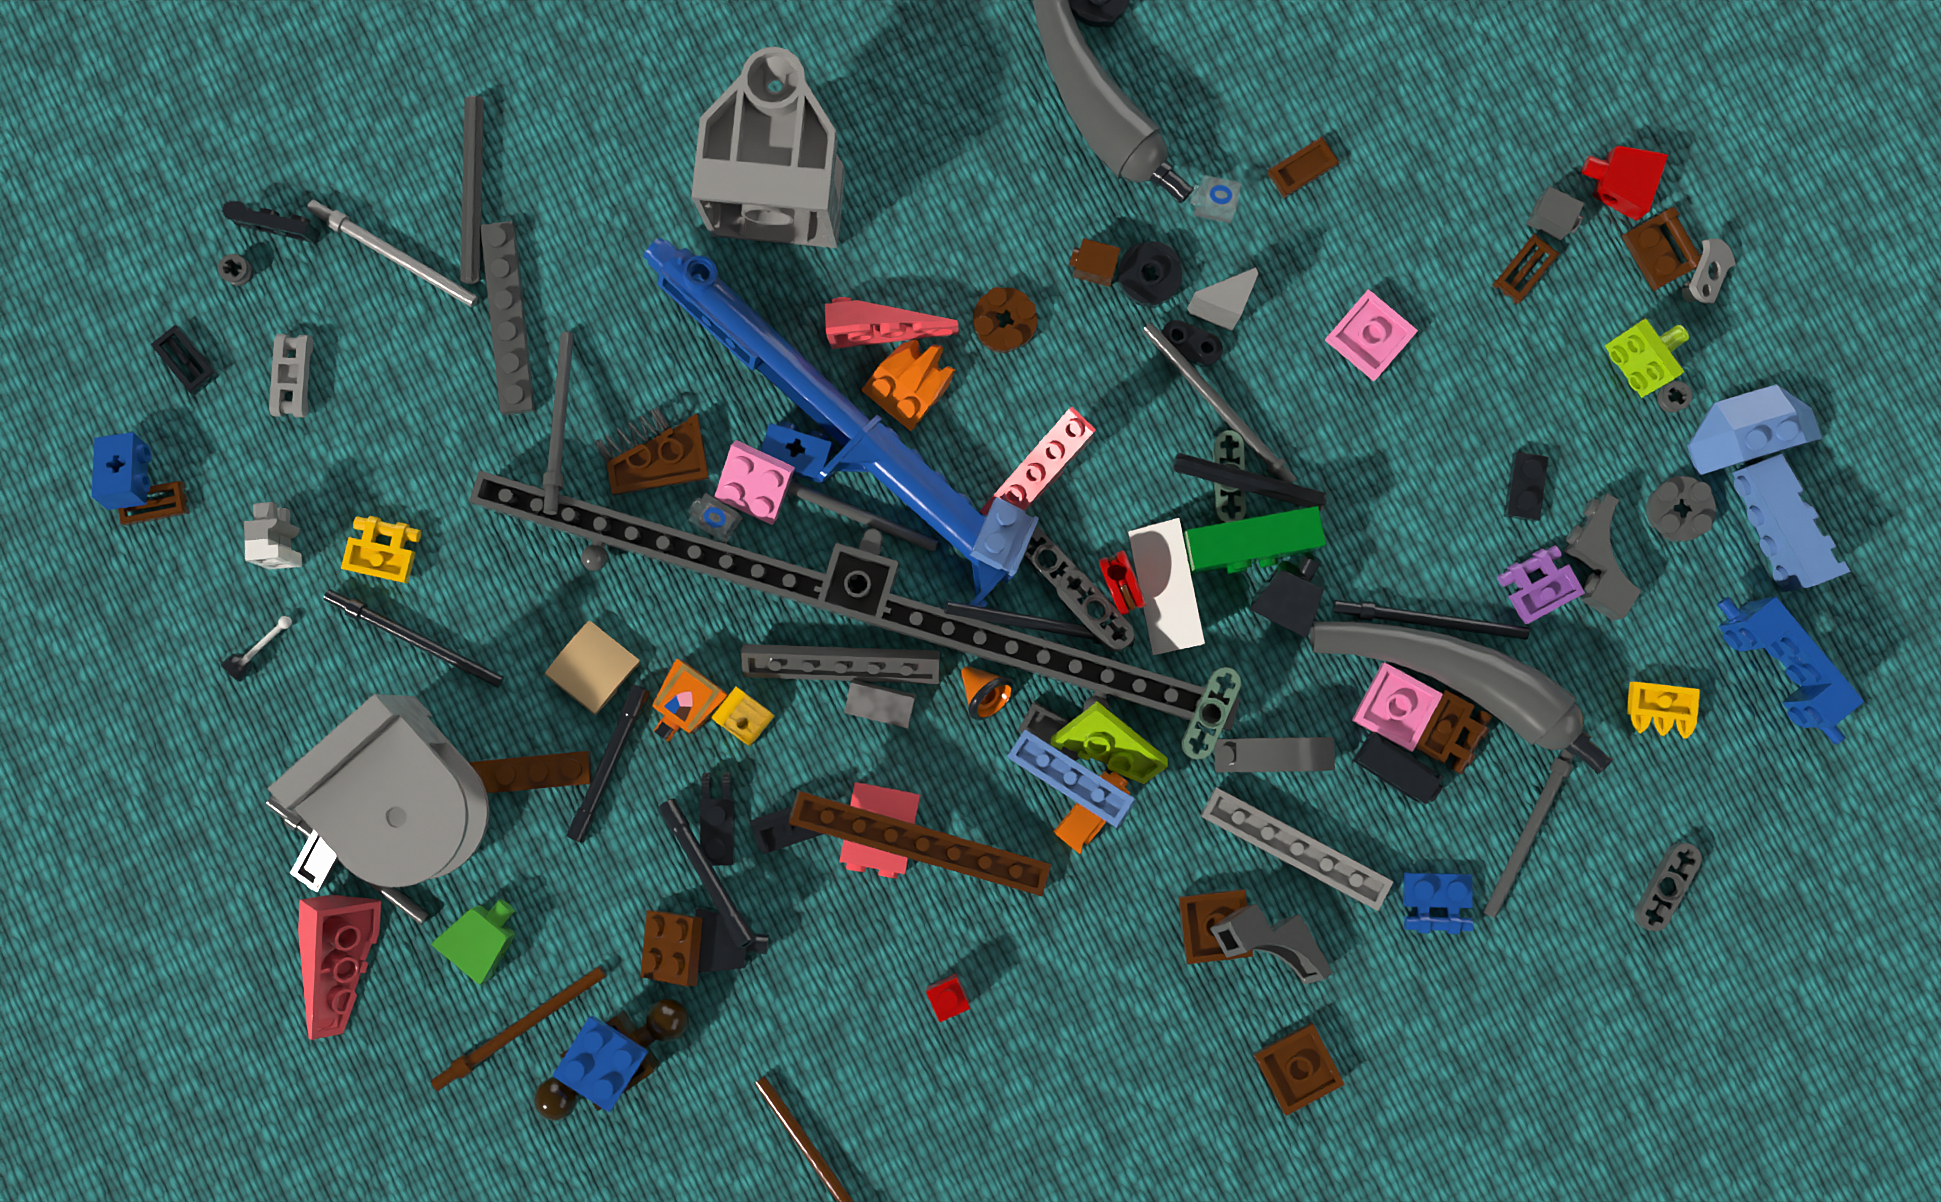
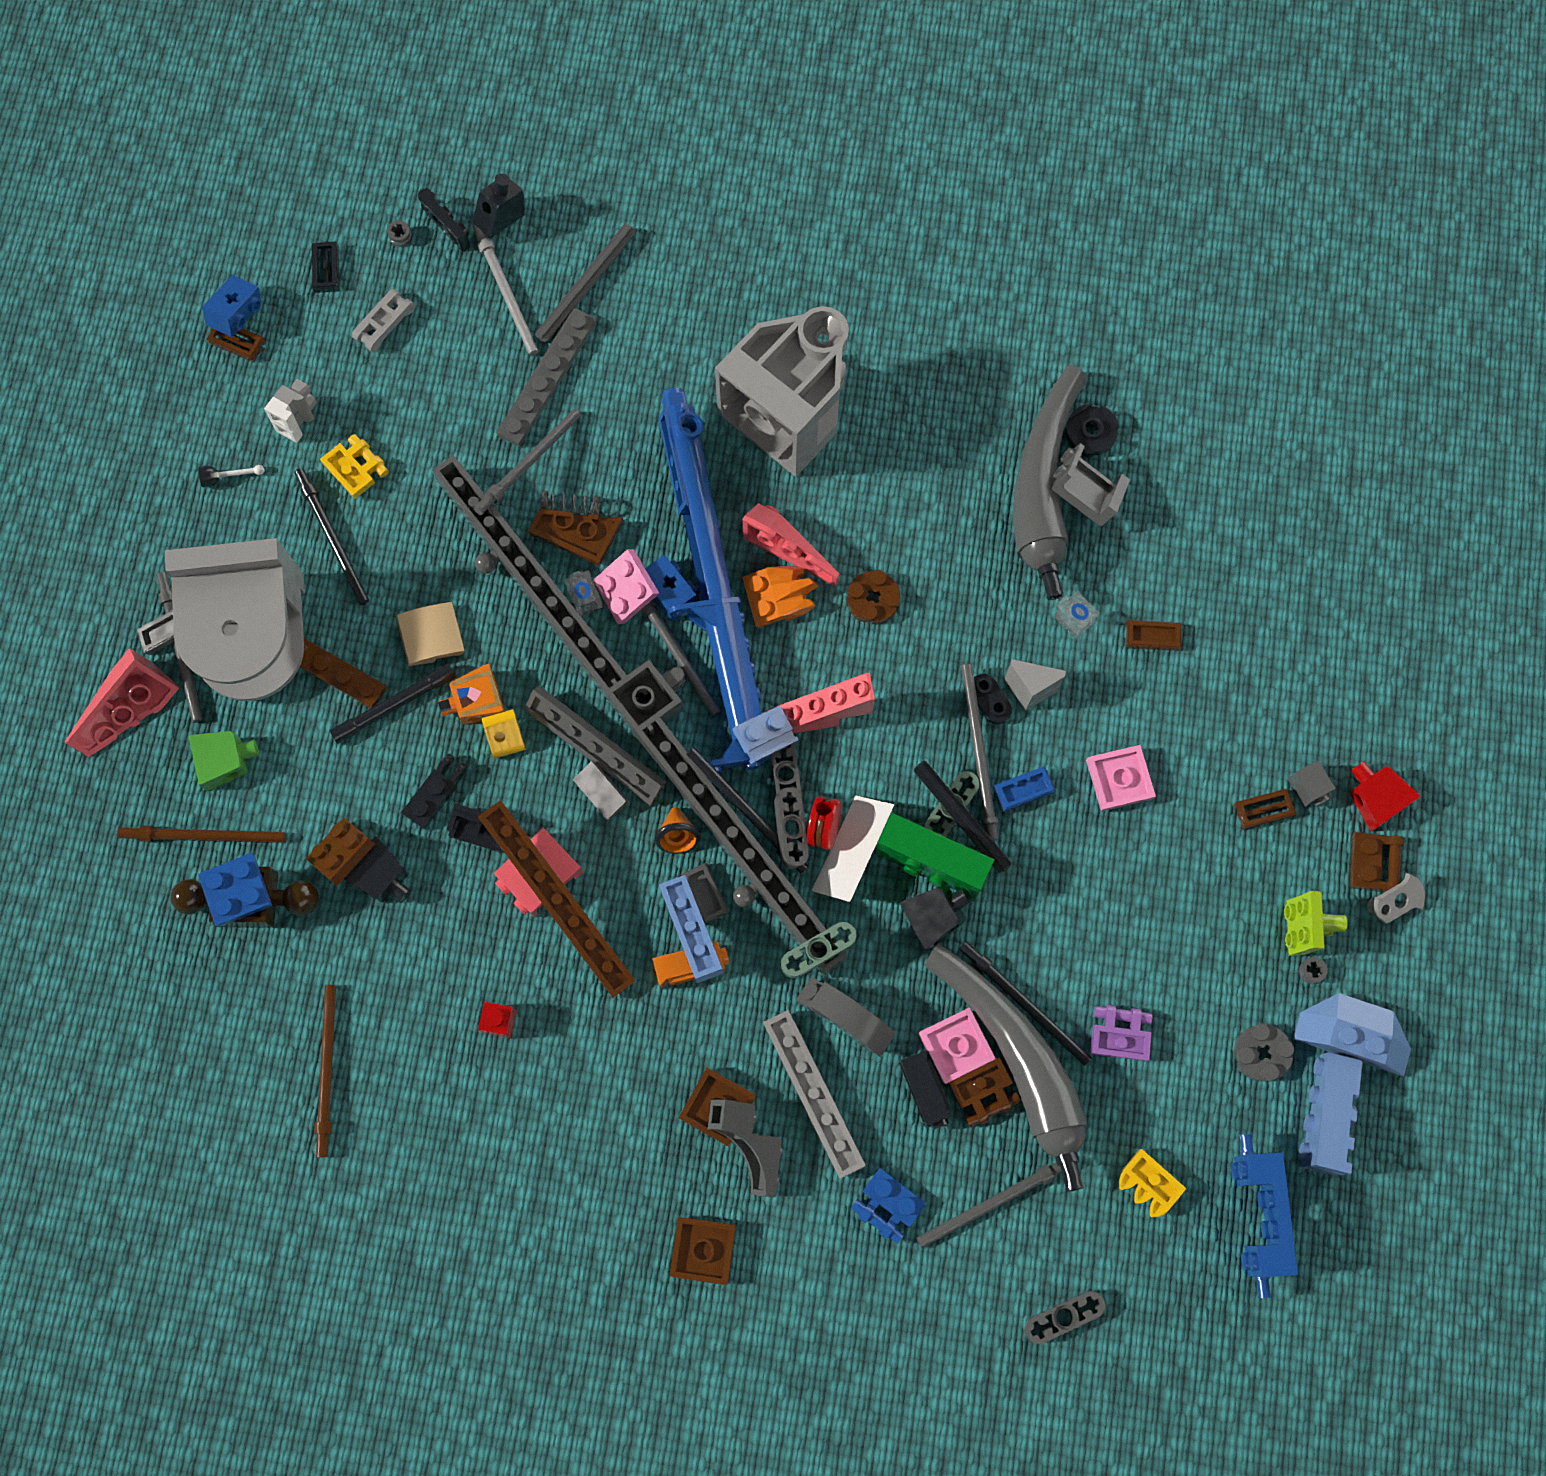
camera: 35 degrees right, 10 degrees down
(320, 169) = (499, 205): none -> black torso
(733, 919) = (394, 859): black piece -> none
(1094, 262) = (962, 600): reddish brown brick -> none
(1110, 741) = (735, 920): lime wing -> none
(1142, 59) = (1088, 488): none -> dark grey panel
(1146, 256) = (1001, 620): black plate -> none
(1287, 411) = (1024, 789): none -> blue plate
(1526, 486) = (1160, 958): black plate -> none
(1590, 544) = (1169, 1072): dark grey arch -> none

